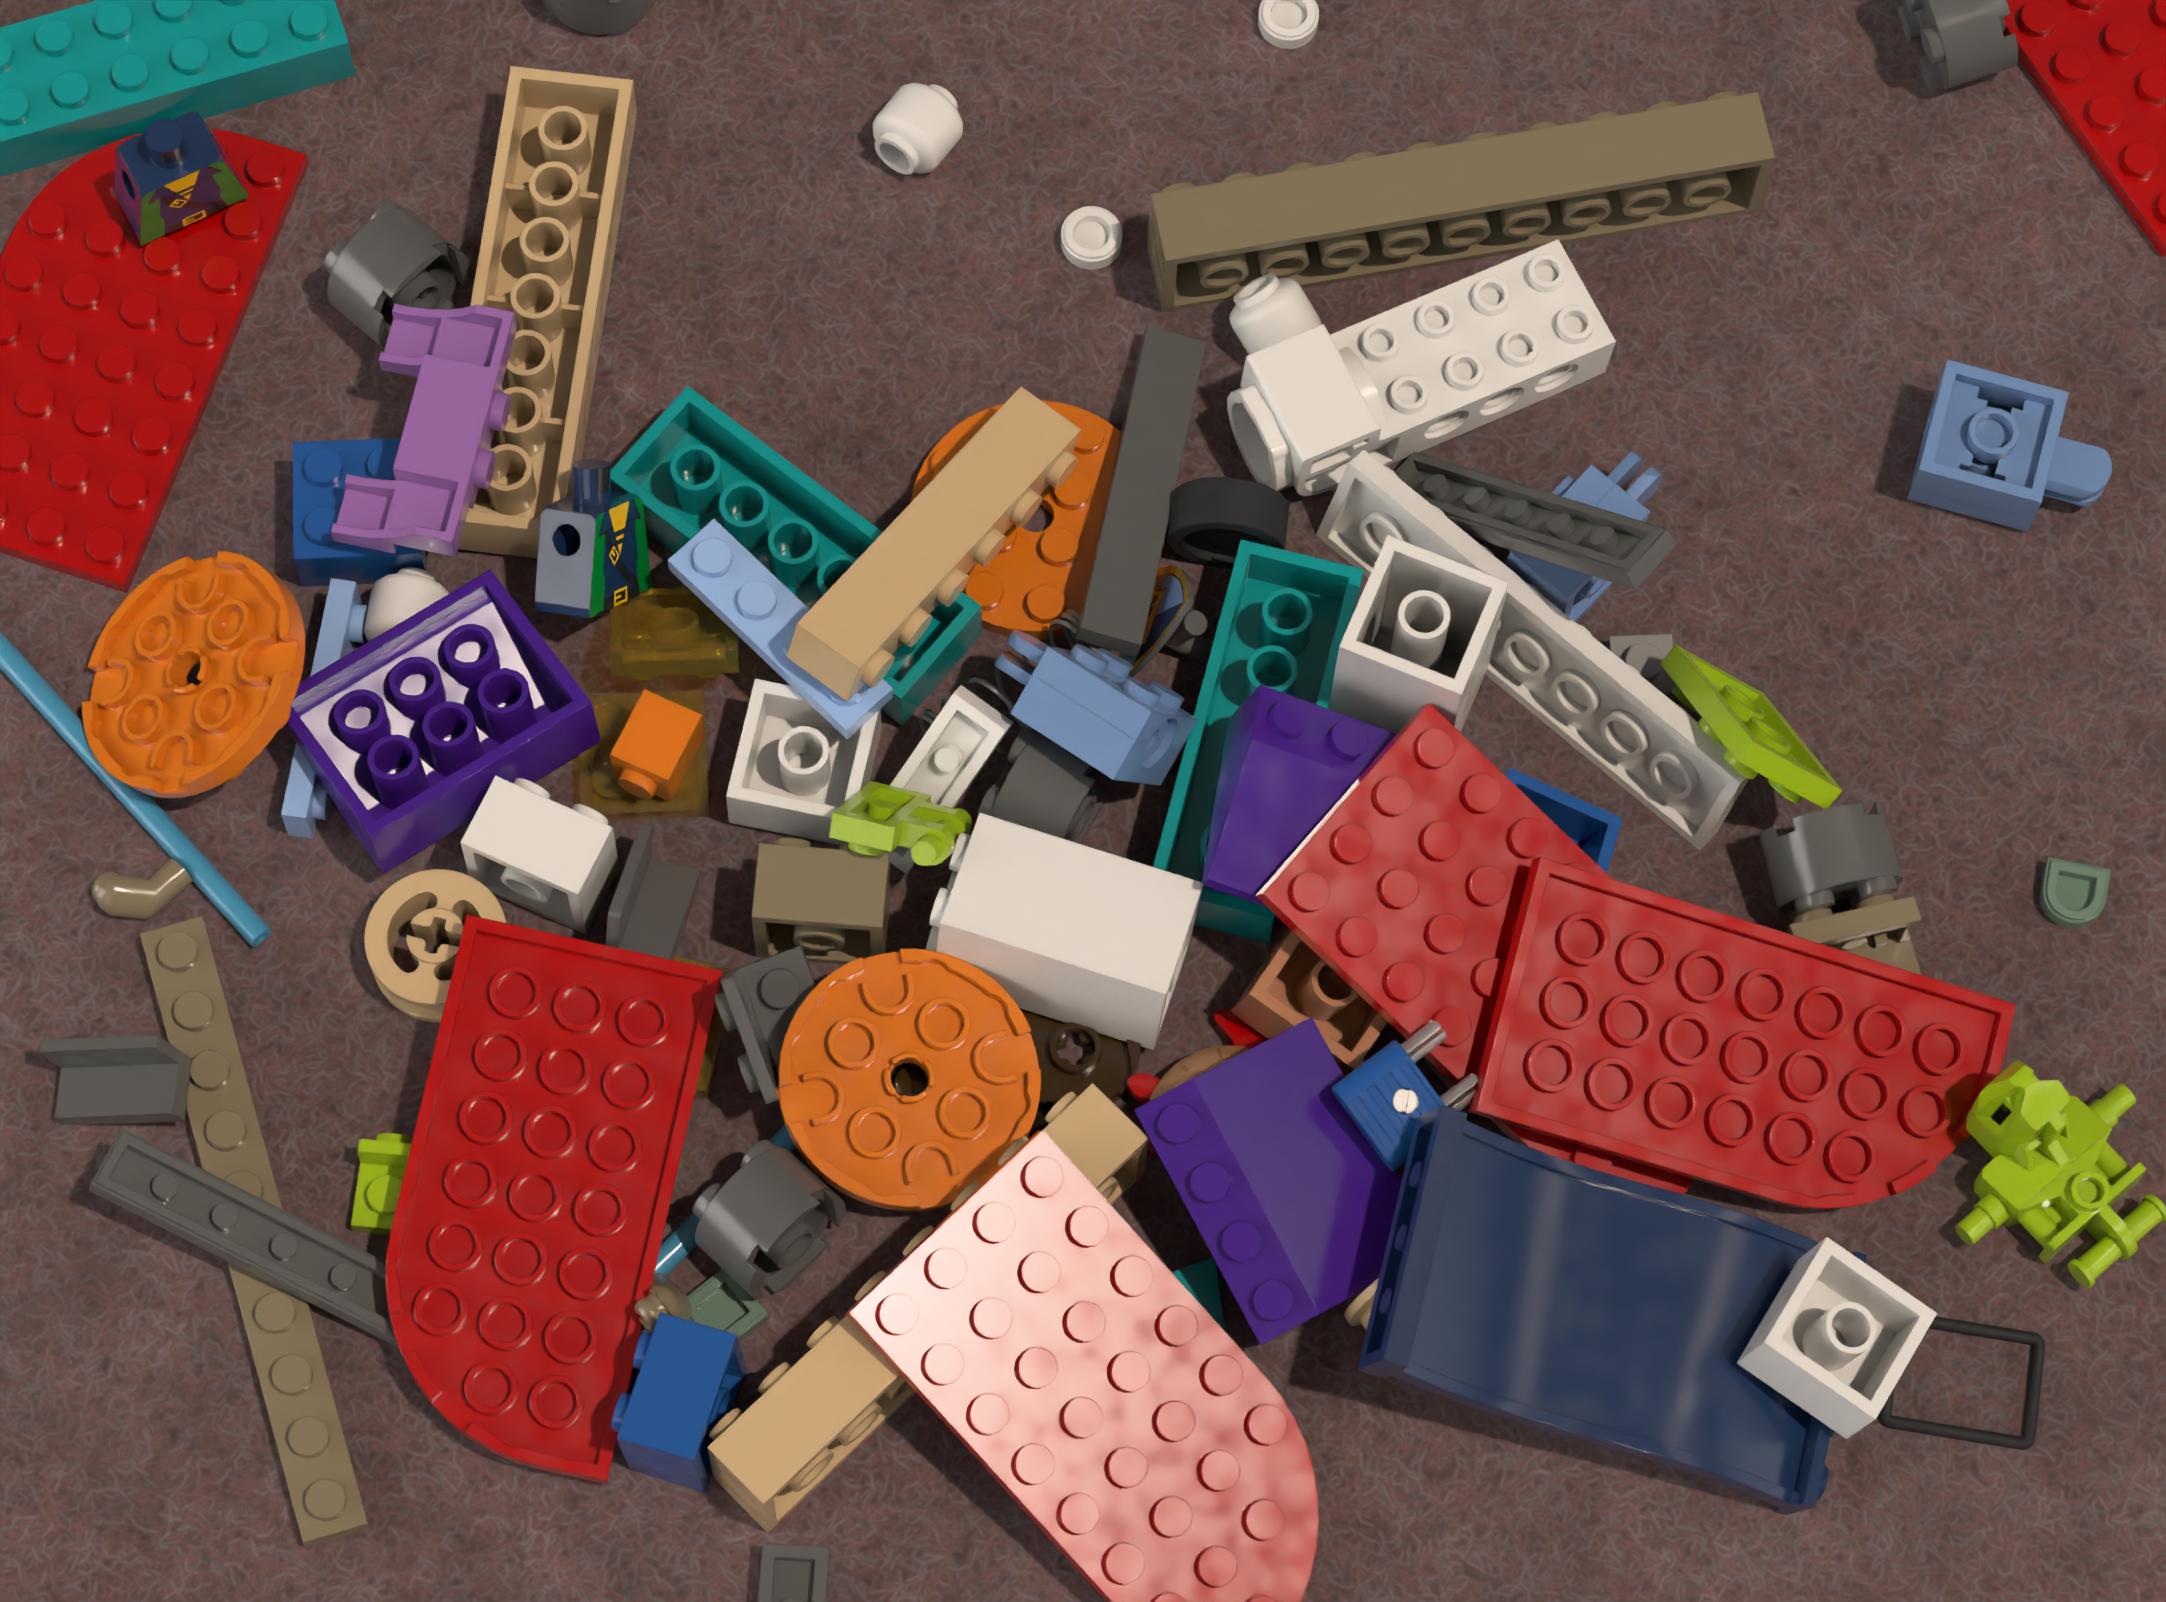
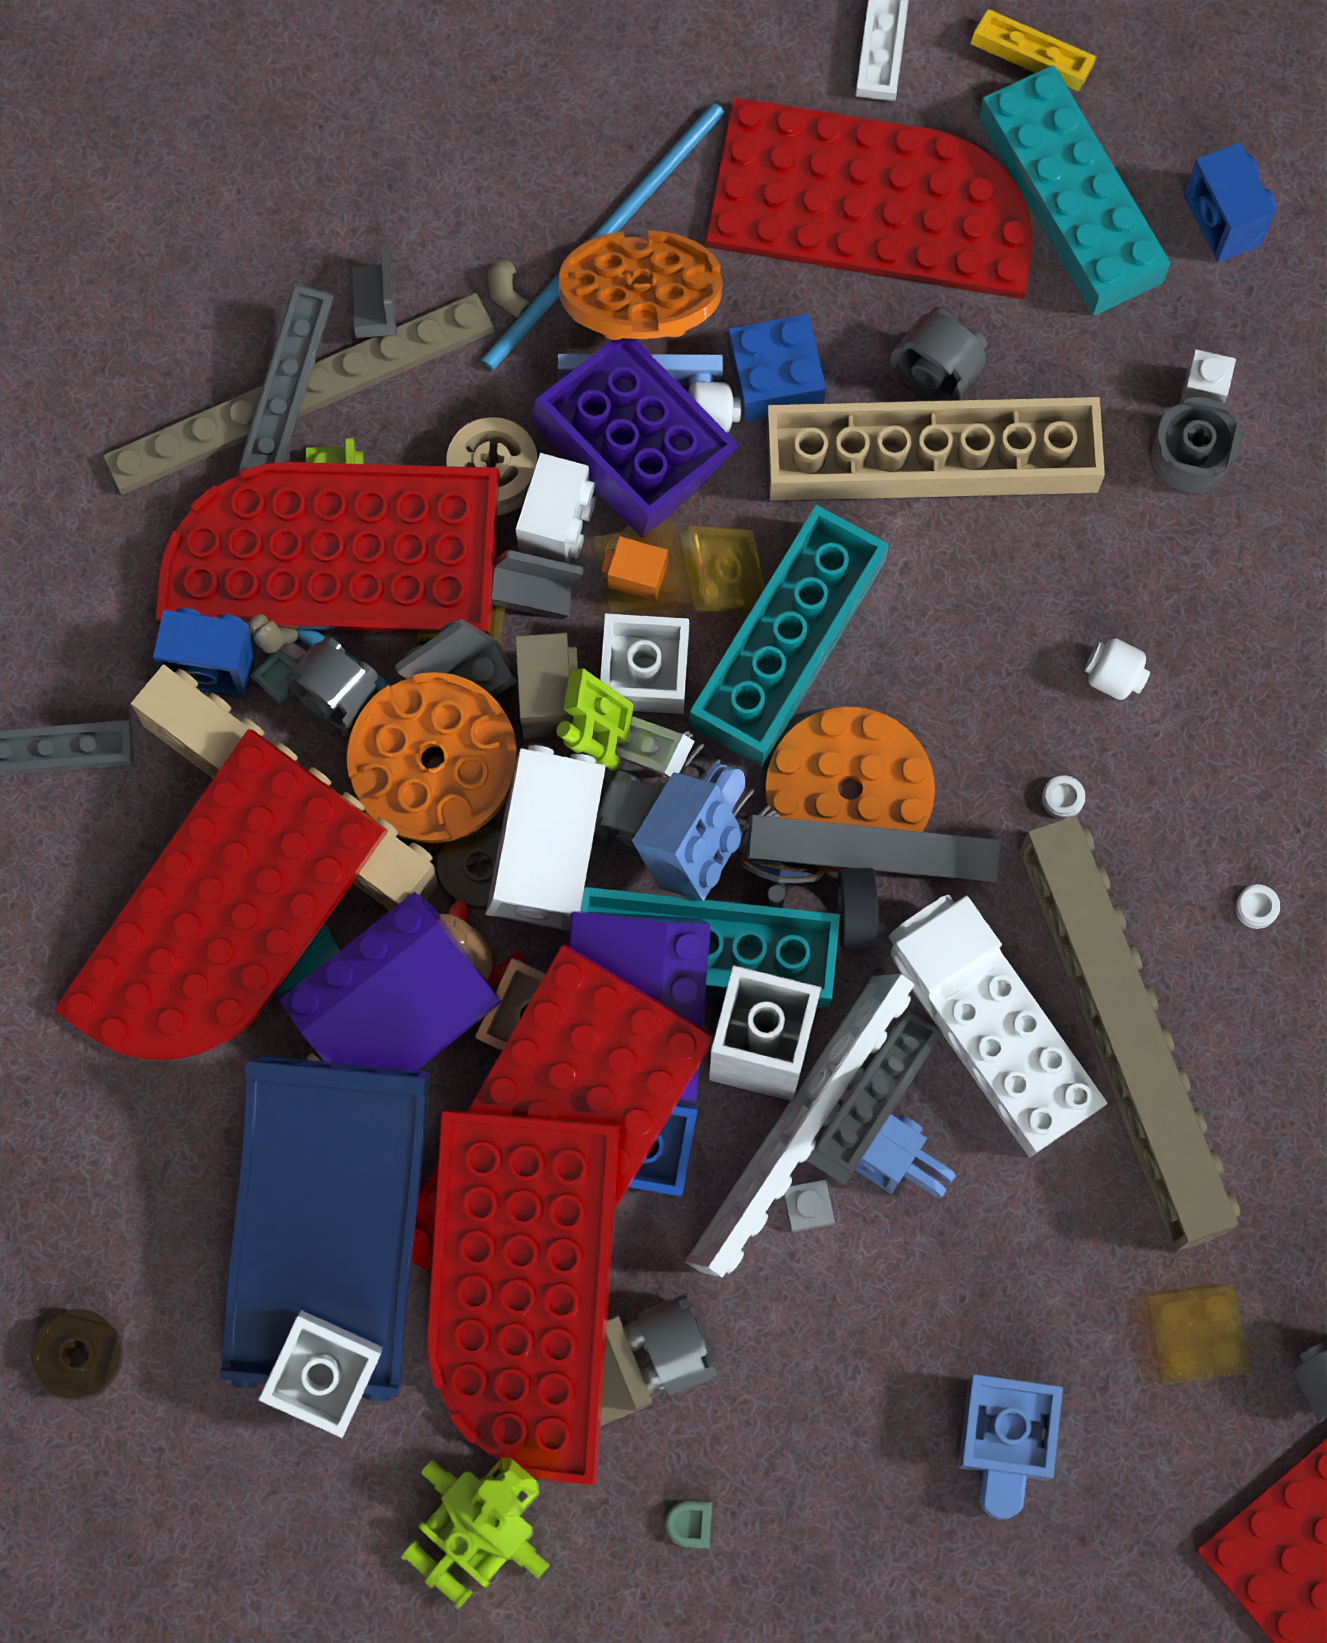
camera: 85 degrees right, 5 degrees up
(174, 176) = (976, 206): dark blue torso -> none
(446, 434) = (820, 394): medium lavender bracket -> none
(591, 546) = (762, 504): dark blue torso -> none
(765, 618) = (723, 627): light blue plate -> none
(934, 545) = (795, 712): tan brick -> none
(1271, 312) = (1018, 922): white head -> none
(1392, 1092) = (450, 1059): blue piece -> none
(1750, 729) = (755, 1273): lime plate -> none
(1877, 199) = (1197, 1335): none -> clear yellow plate
(1977, 1435) = (295, 1479): black piece -> none

